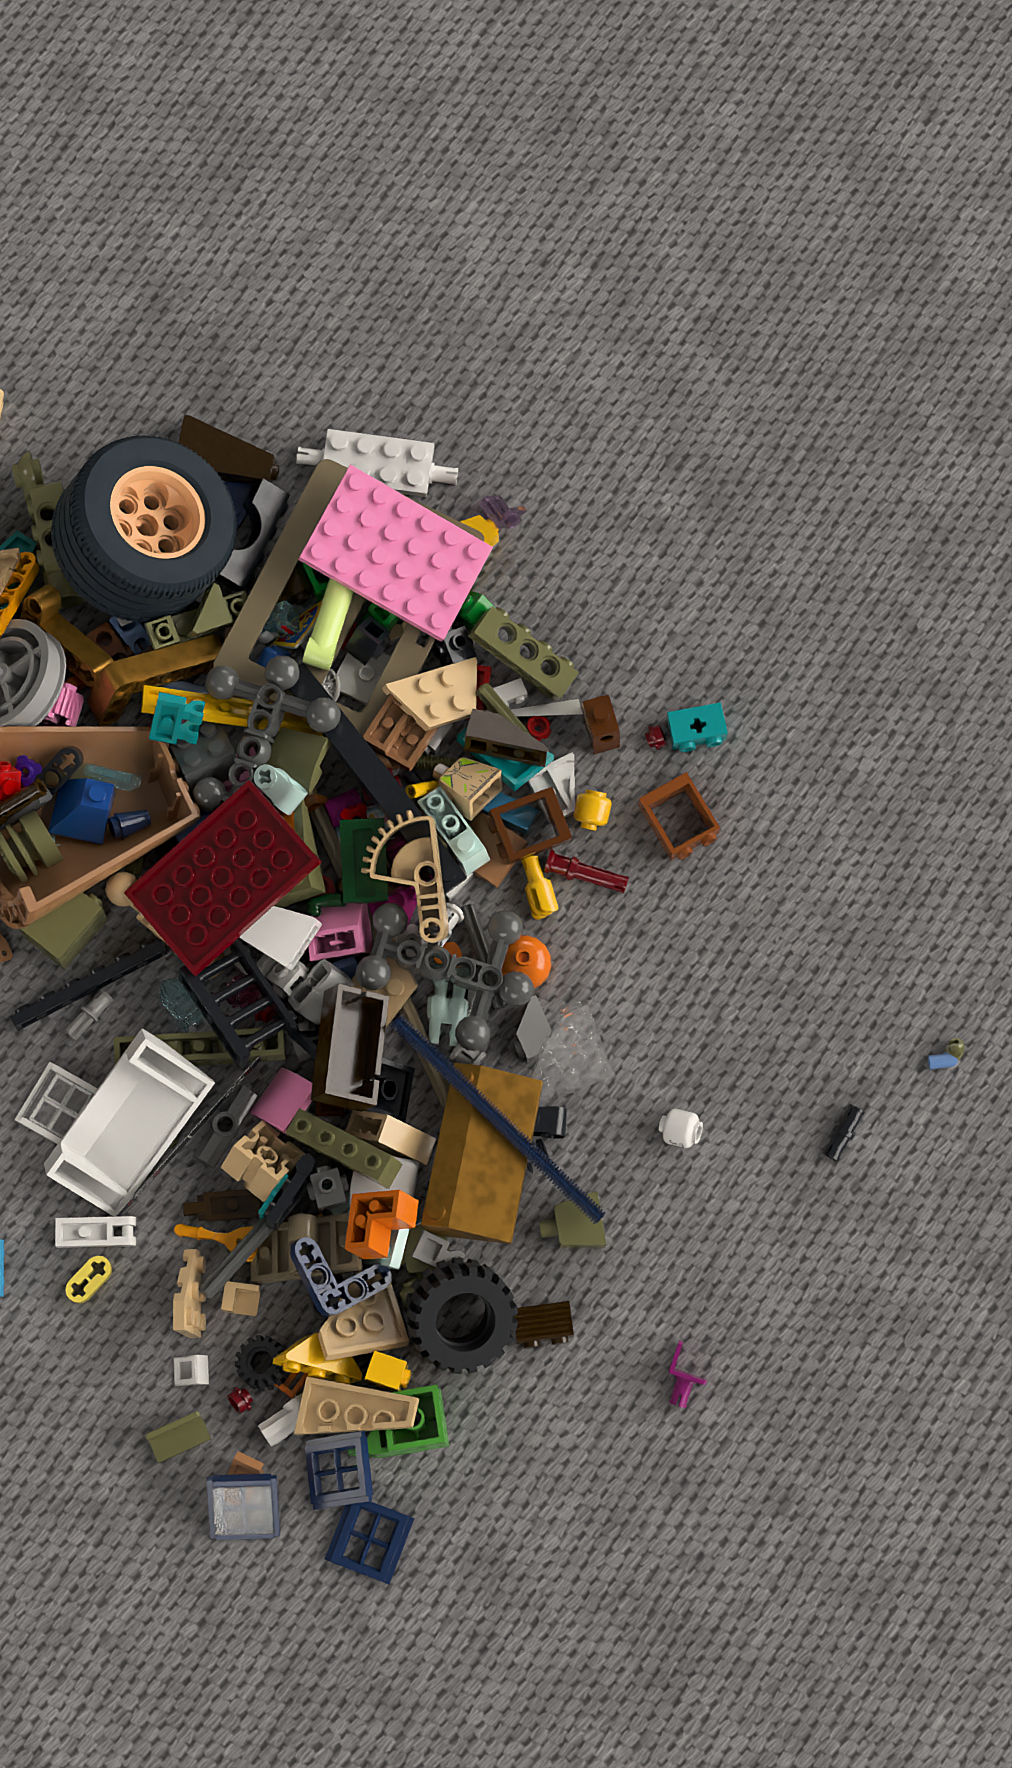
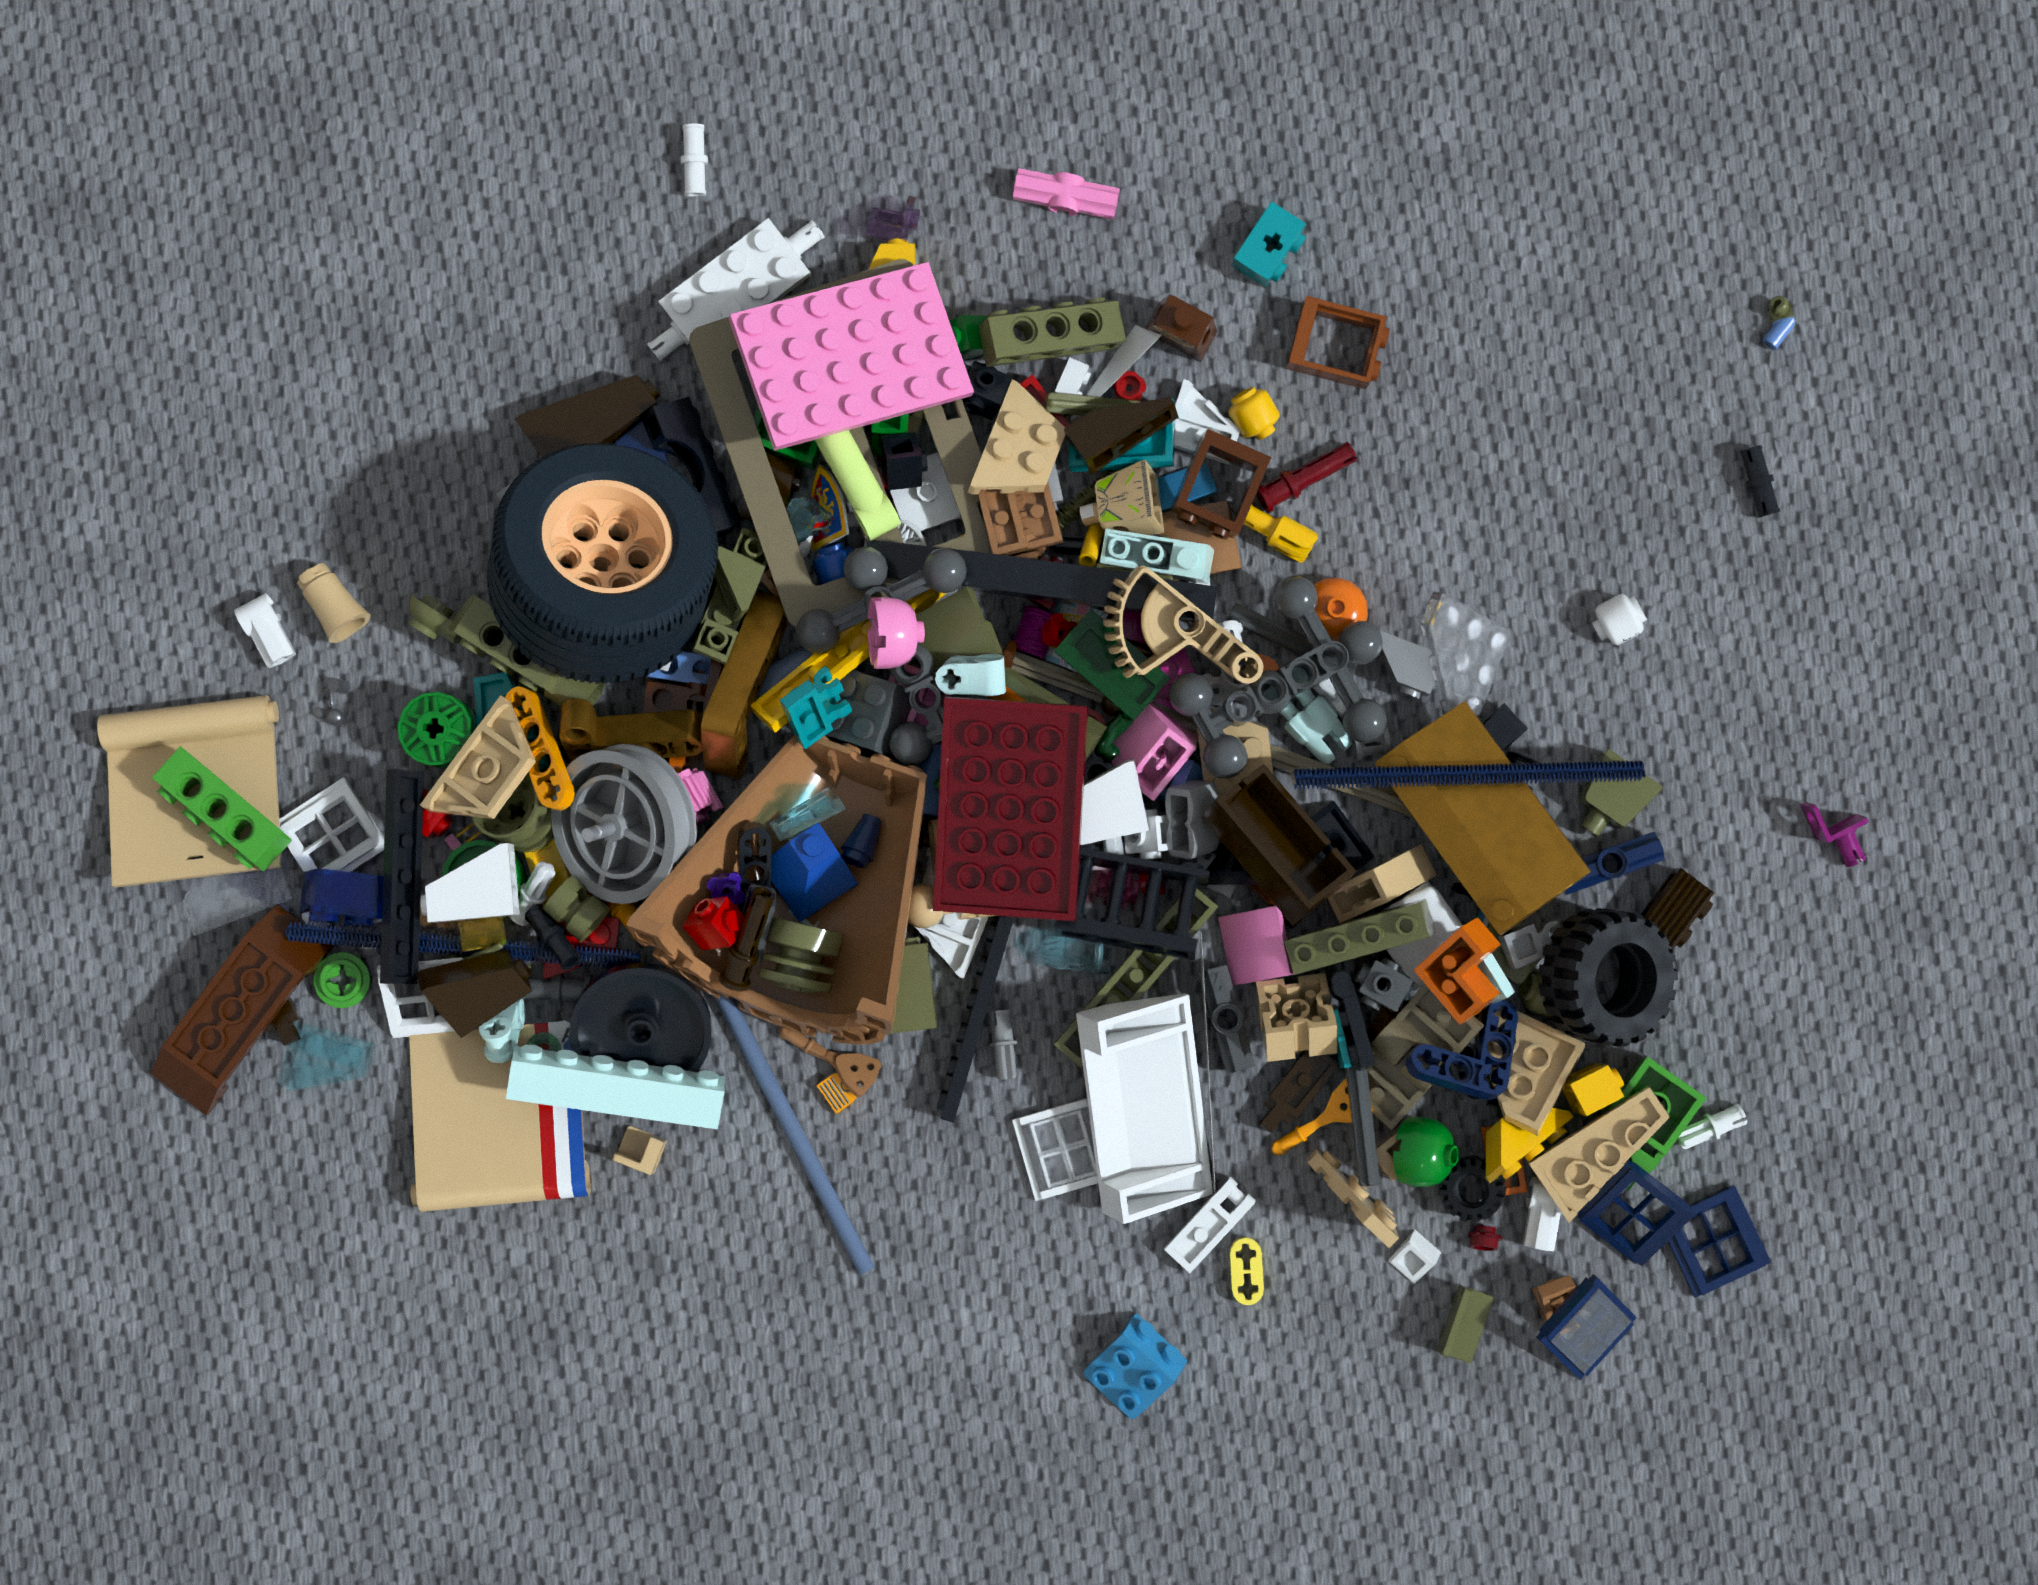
camera: 45 degrees left, 10 degrees up
(124, 930) = (955, 940): none -> white wing
(254, 1309) = (1425, 1152): none -> green cylinder
(257, 716) = (892, 632): none -> bright pink cylinder
(428, 375) = (694, 159): none -> white pin
(435, 1470) = (1712, 1126): none -> white axle
(550, 1268) = (1629, 857): none -> dark blue piece
(613, 589) = (1066, 193): none -> bright pink piece
(656, 737) = (1241, 291): dark red plate -> none

